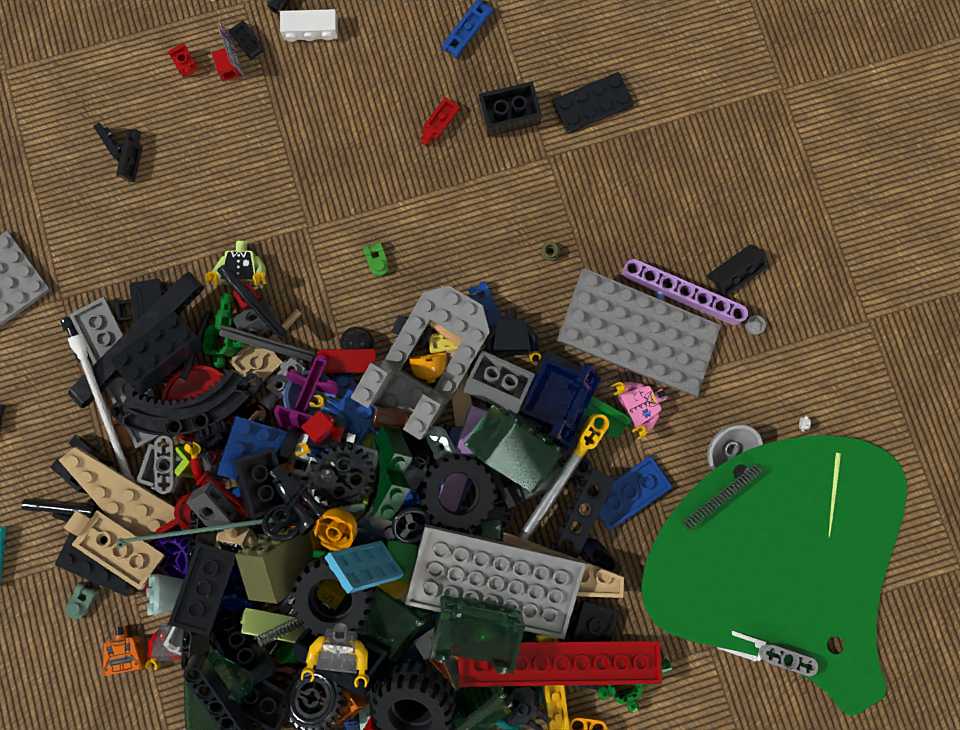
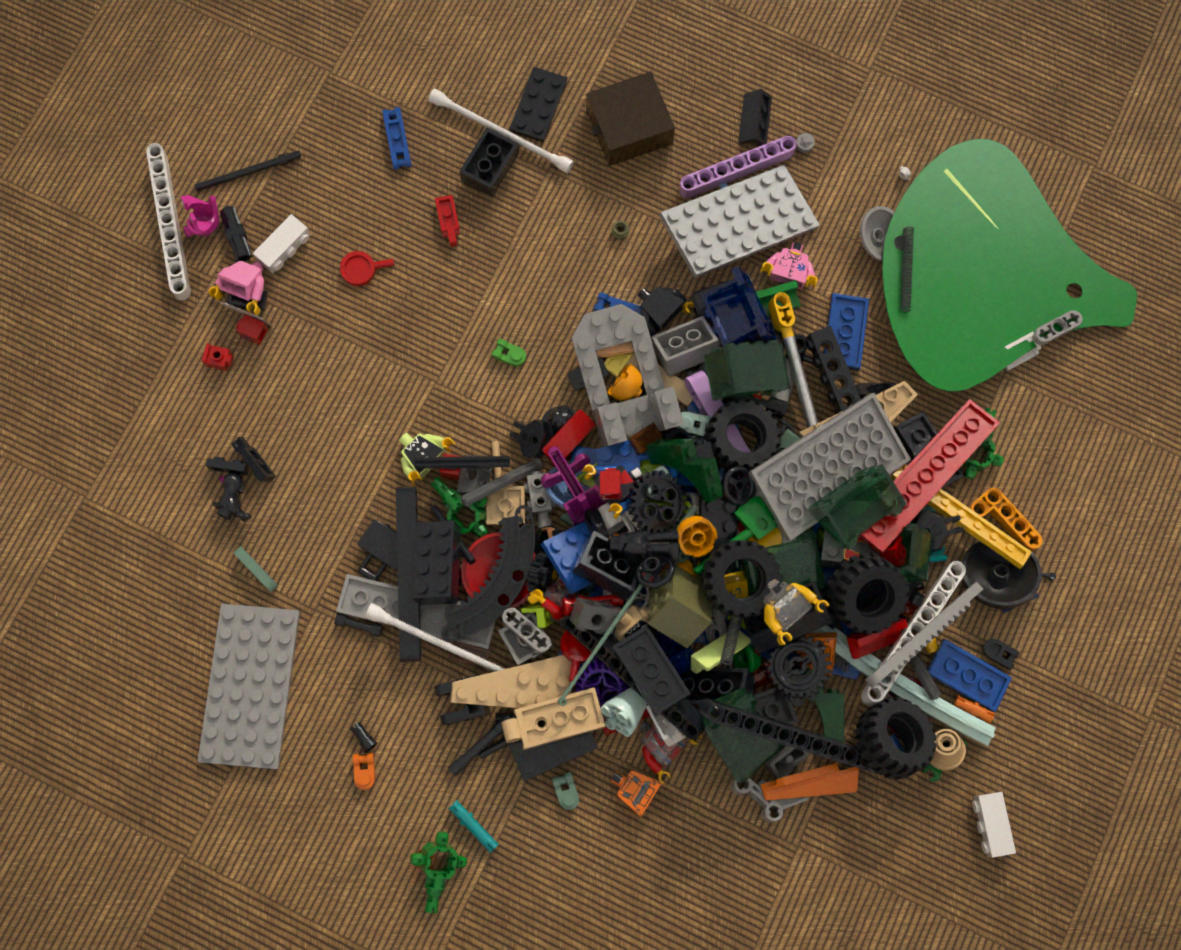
camera: 50 degrees left, 5 degrees down
(52, 231) = (256, 569): none -> sand green beam
(83, 168) = (229, 503): none -> black animal
(252, 24) = (242, 281): none -> bright pink torso
(324, 333) = (532, 436): none -> black hinge
(343, 95) = (359, 268): none -> red piece
(363, 566) = (743, 533): medium azure plate -> none
(473, 697) = (895, 552): none -> red brick
(527, 30) = (561, 162): none -> white hose
(642, 177) = (629, 118): none -> dark brown container

